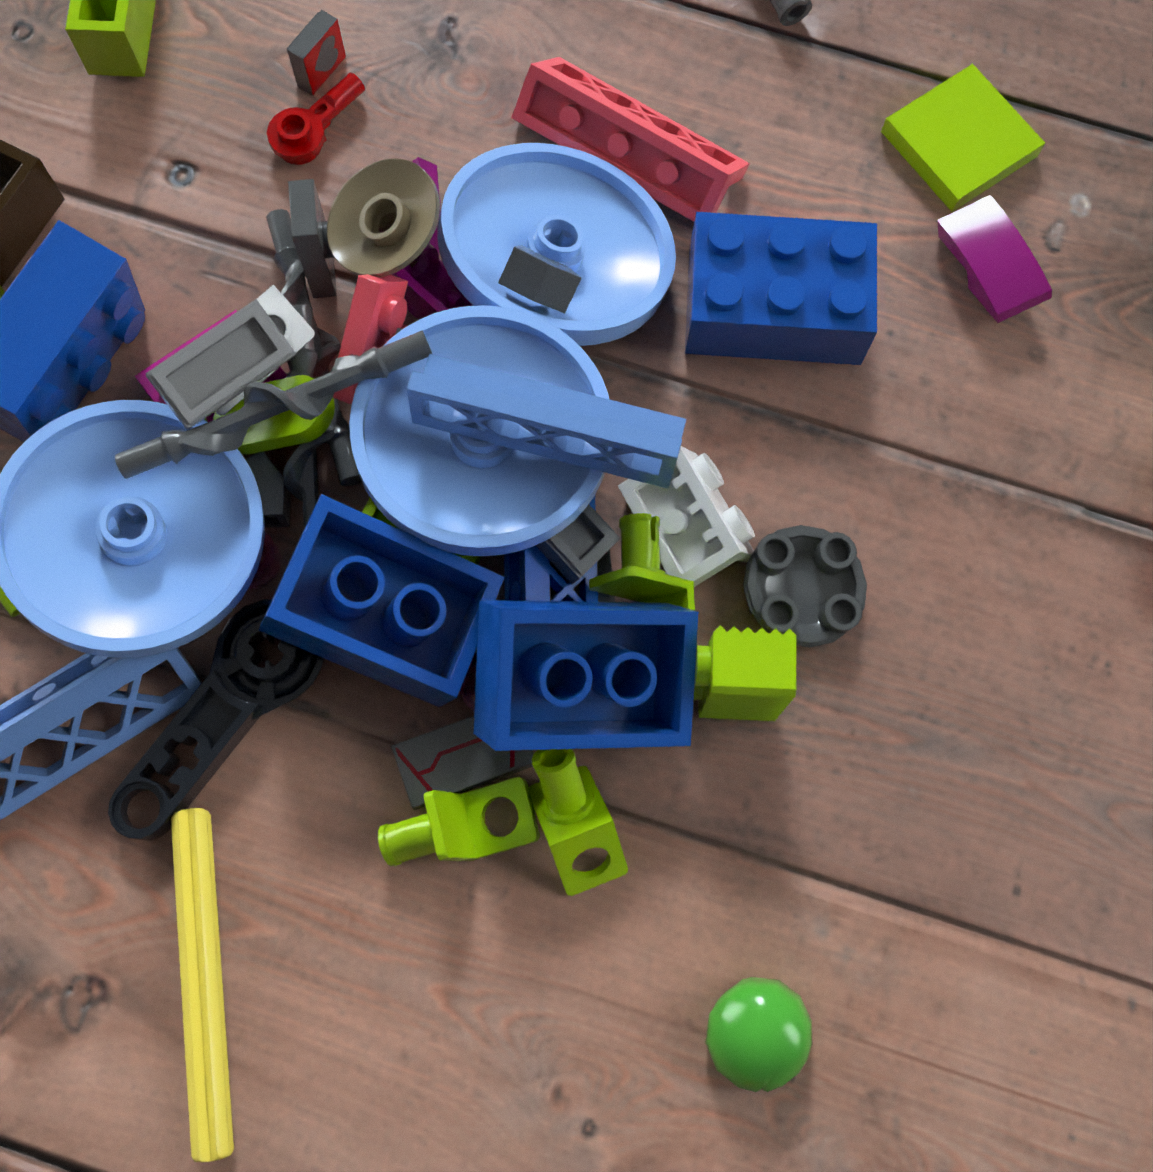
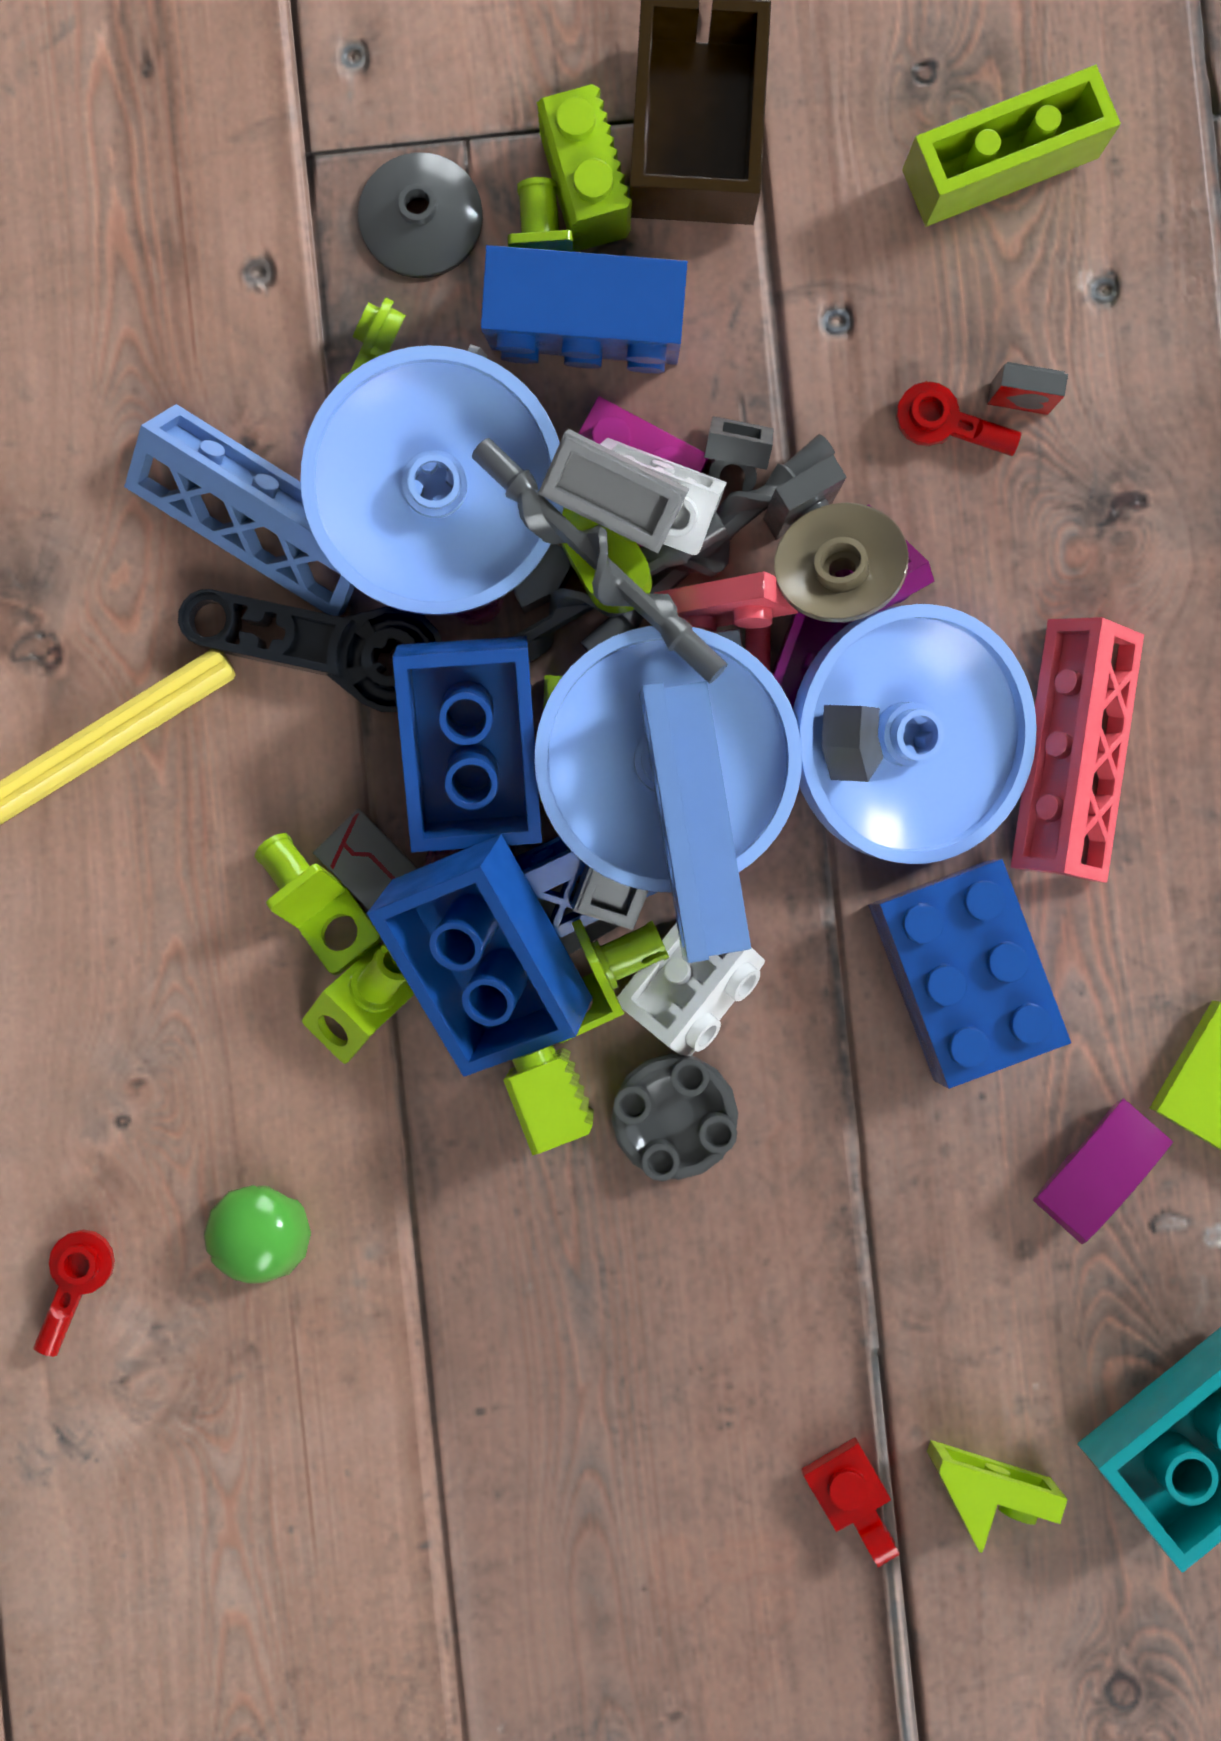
camera: 65 degrees right, 15 degrees up
(242, 280) = (739, 445): none -> dark grey tile

